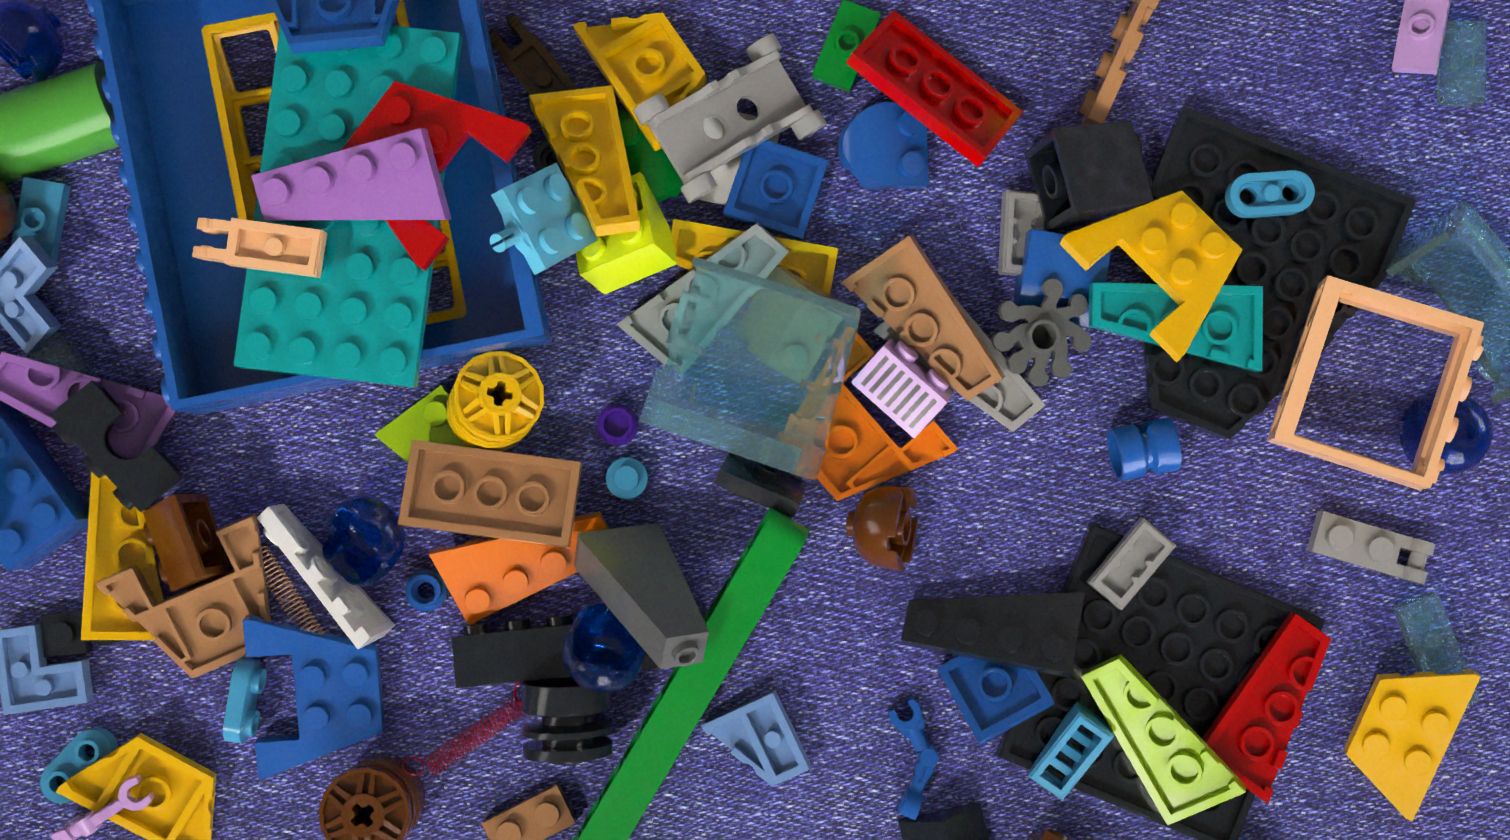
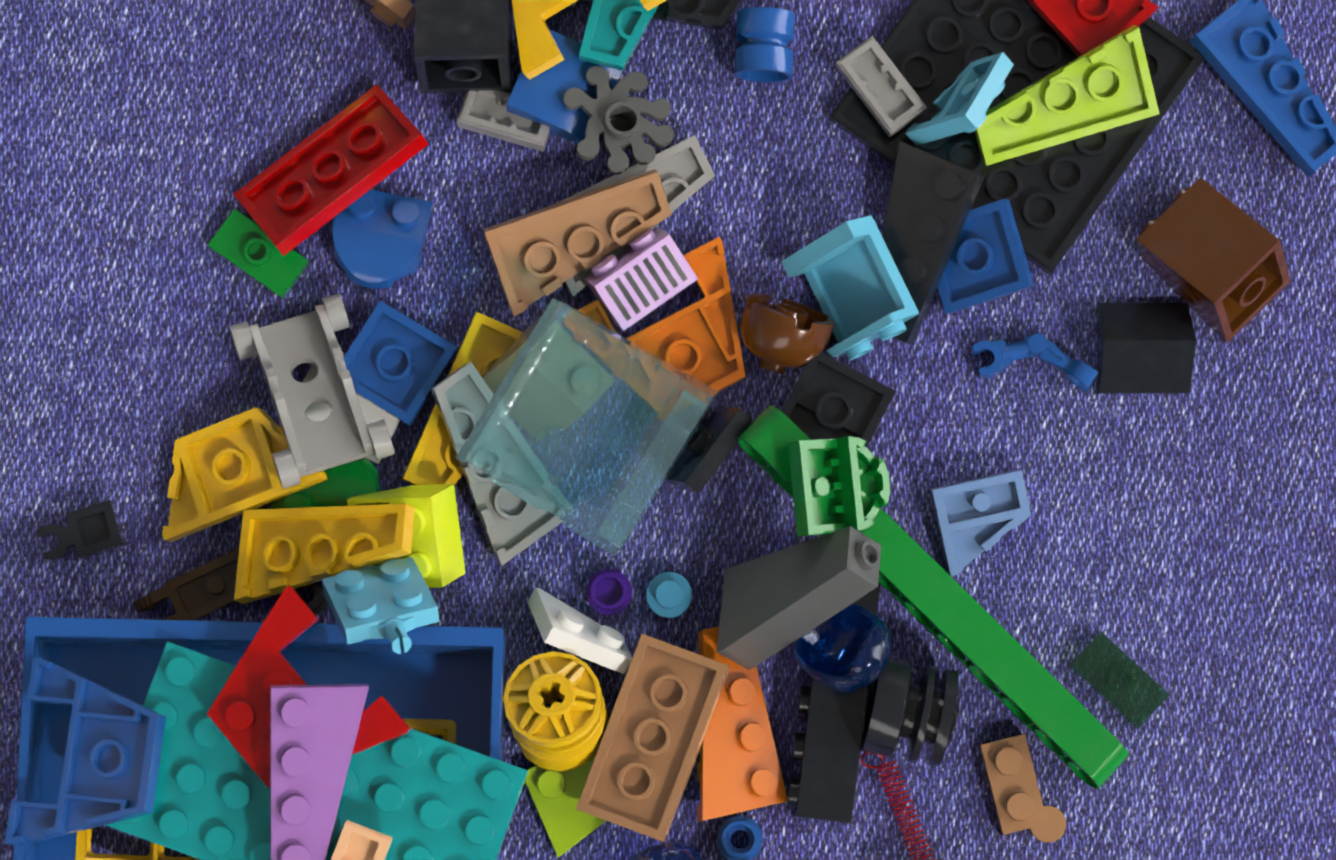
camera: 85 degrees left, 5 degrees down
(570, 405) = (577, 633): none -> white wing
(745, 609) = (836, 485): none -> green slope
(823, 590) = (836, 401): none -> black plate
(941, 582) = (855, 285): none -> medium azure panel
(1083, 759) = (1050, 205): dark azure slope -> none
(1136, 645) = (965, 101): none -> medium azure wing

